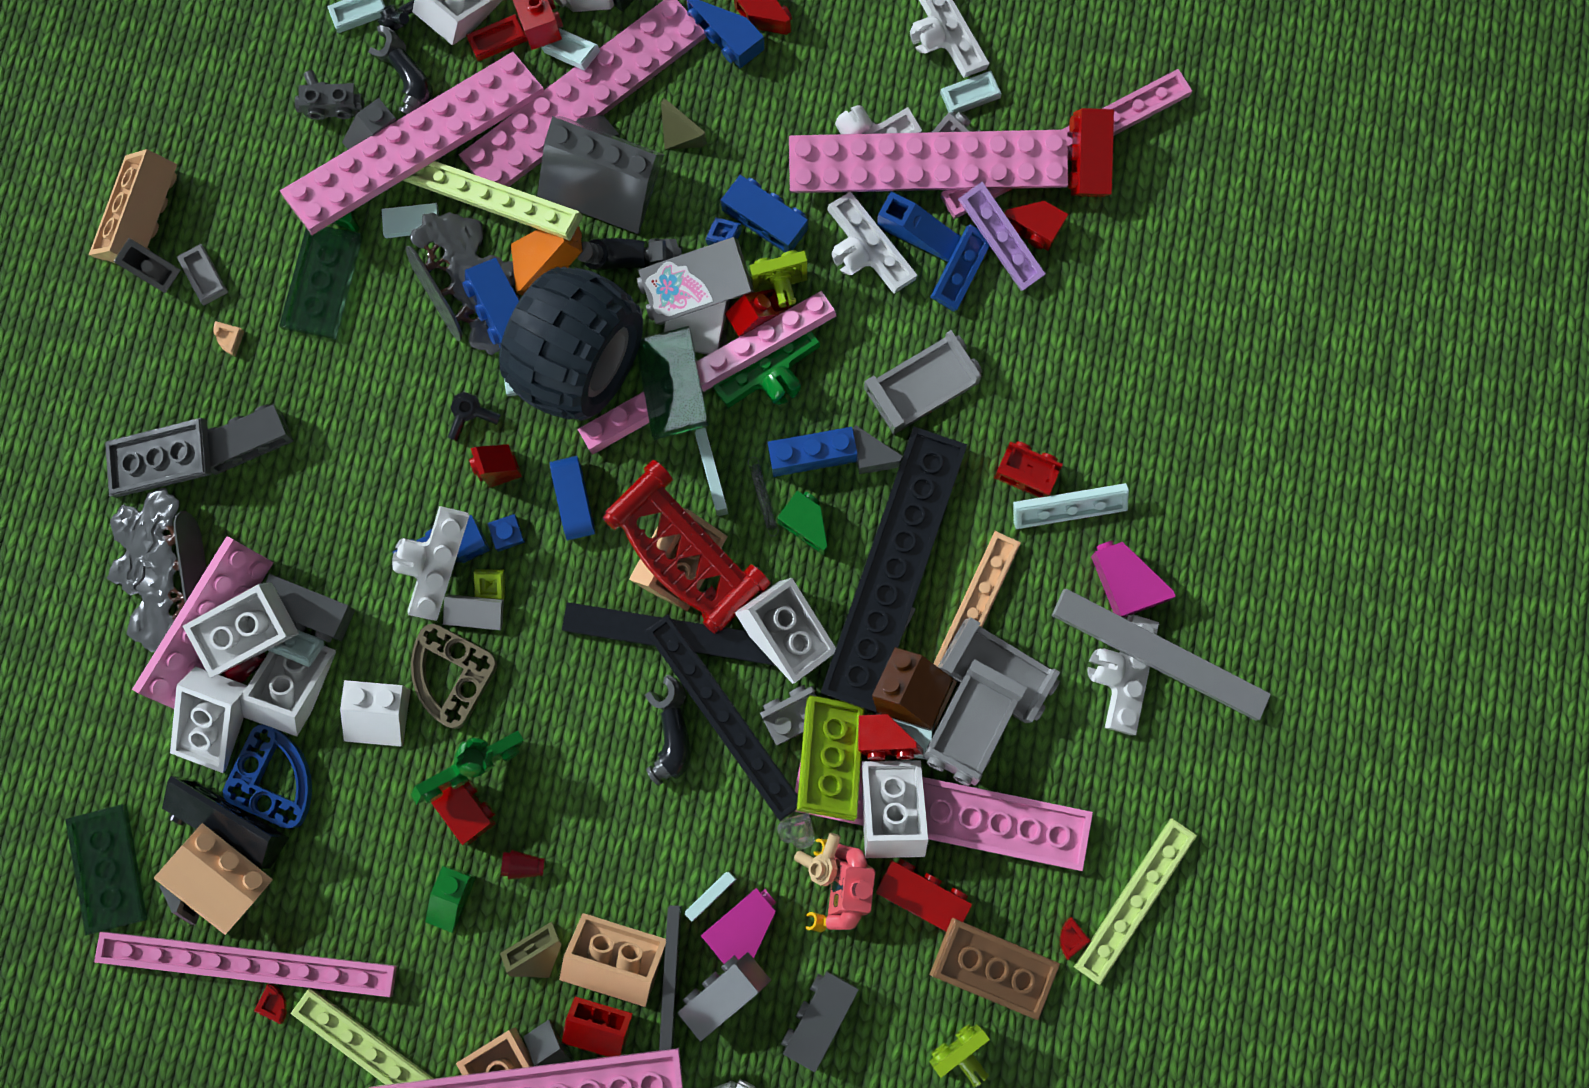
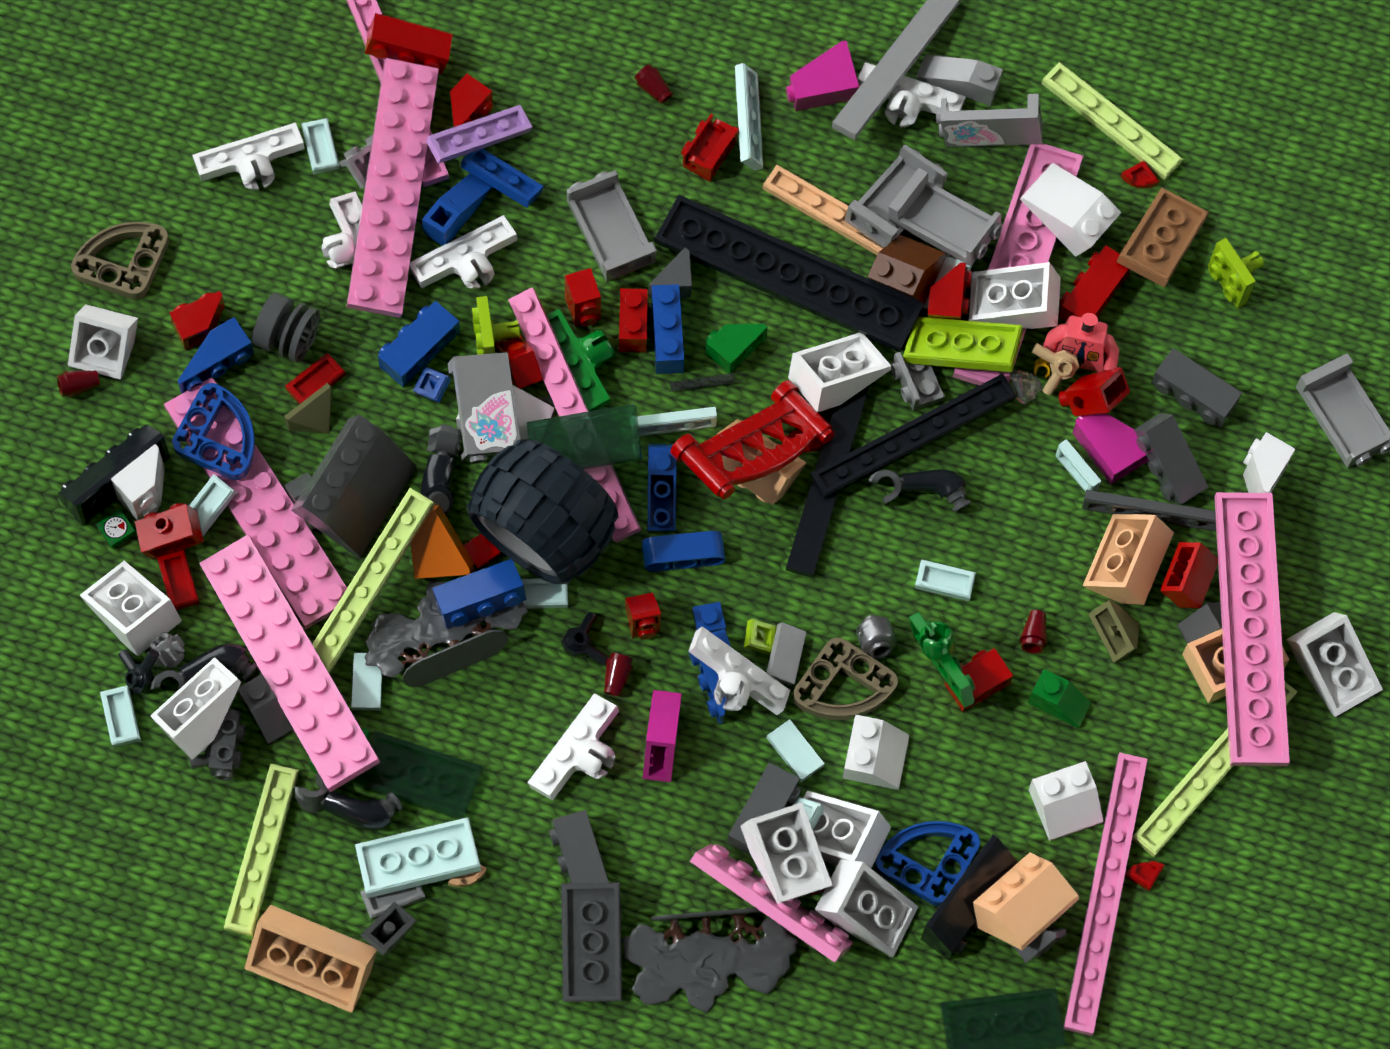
camera: 90 degrees left, 10 degrees down
(236, 290) = (417, 857): none -> light aqua tile
(238, 152) = (261, 850): none -> yellowish green tile
(271, 234) = (365, 814): none -> black piece
(340, 914) = (1066, 801): none -> white slope
(350, 63) = (198, 708): none -> white slope
(356, 423) = (578, 749): none -> white plate
(374, 633) = (795, 750): none -> light aqua tile
(375, 498) = (661, 736): none -> dark pink slope
(419, 36) = (169, 649): none -> light grey gear
(437, 449) = (617, 673): none -> dark red cone
(499, 700) = (876, 636): none -> flat silver head
(572, 767) = (945, 580): none -> light aqua tile
(628, 28) = (201, 443): none -> blue beam
(628, 468) = (661, 488): none -> blue slope
(717, 127) = (314, 377): none -> red tile
(759, 85) = (285, 327): none -> dark grey wheel
(792, 908) = (1095, 392): none -> red torso
(816, 415) = (633, 320): none -> red brick
(830, 361) = (583, 297): none -> red brick
(1010, 860) = (1070, 208): none -> white slope
(1094, 404) = (652, 82): none -> dark red cone
(1098, 803) = (991, 126): none -> light grey panel
(1158, 727) = (962, 76): none -> light grey slope

